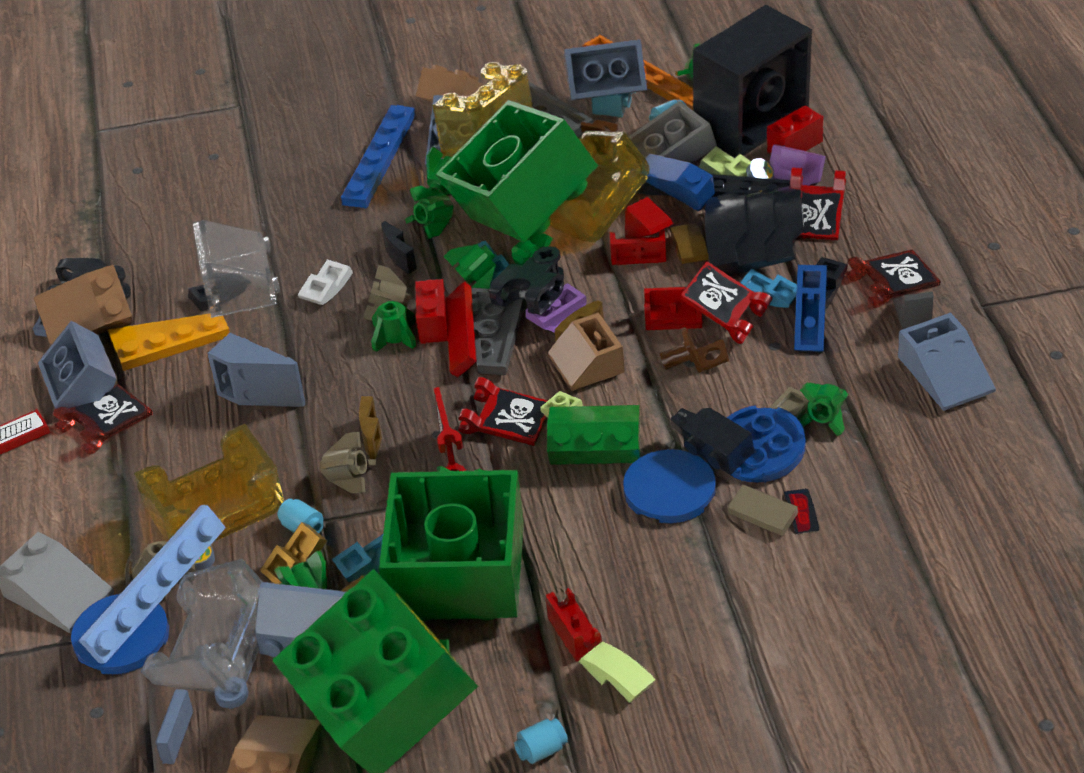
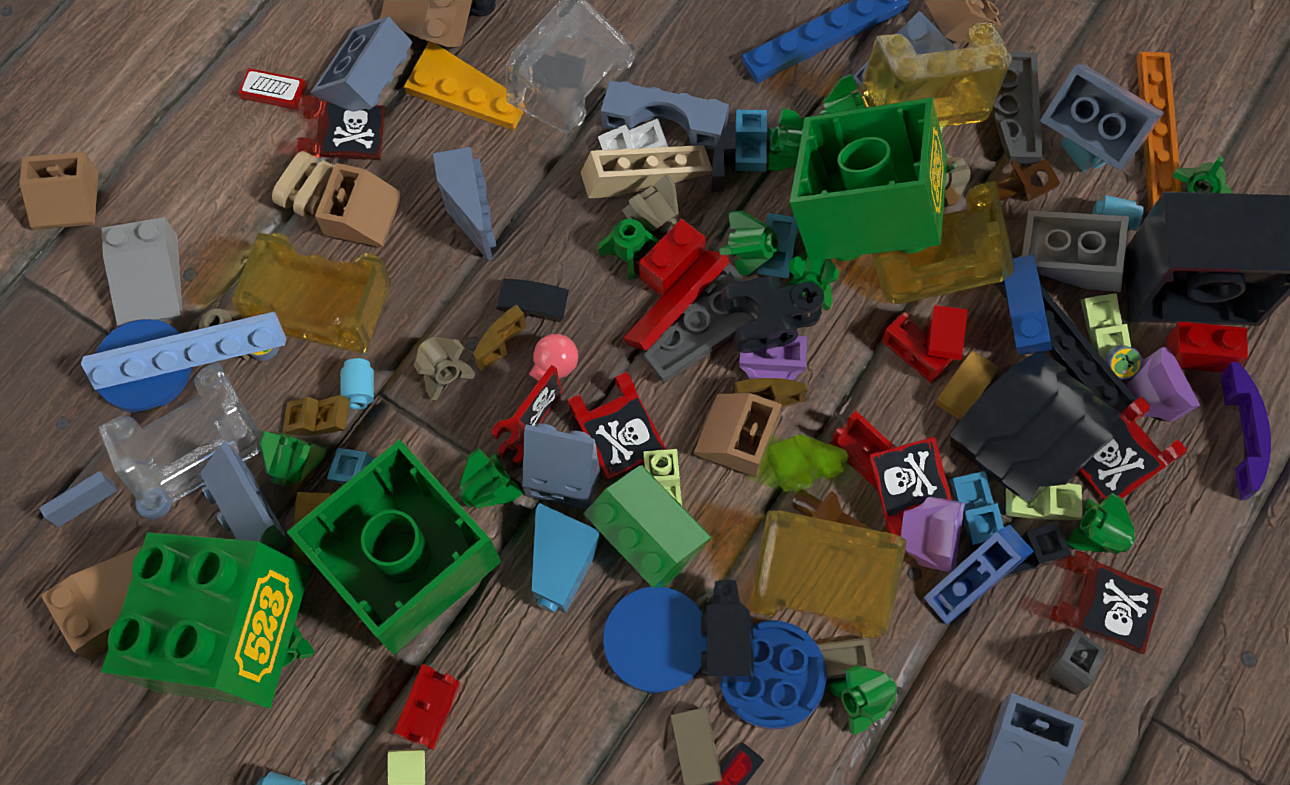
camera: 45 degrees right, 25 degrees up
(132, 460) = (303, 184): none -> tan brick
(174, 436) = (357, 206): none -> medium nougat slope
(346, 291) = (634, 170): none -> tan slope
(348, 401) = (533, 298): none -> black slope
(355, 241) = (635, 104): none -> sand blue arch
(413, 236) = (751, 140): none -> dark azure slope
(420, 409) = (555, 351): none -> coral piece
(503, 432) = (560, 466): none -> sand blue slope
(557, 492) = (560, 557): none -> dark azure slope
(644, 339) = (804, 459): none -> clear neon green slope
(724, 363) = (828, 571): none -> clear yellow windscreen
(763, 309) = (934, 532): none -> medium lavender slope
(807, 253) = (1054, 503): none -> yellowish green slope
(849, 239) = (1105, 527): none -> green brick
(863, 147) = (1241, 391): none -> dark purple slope

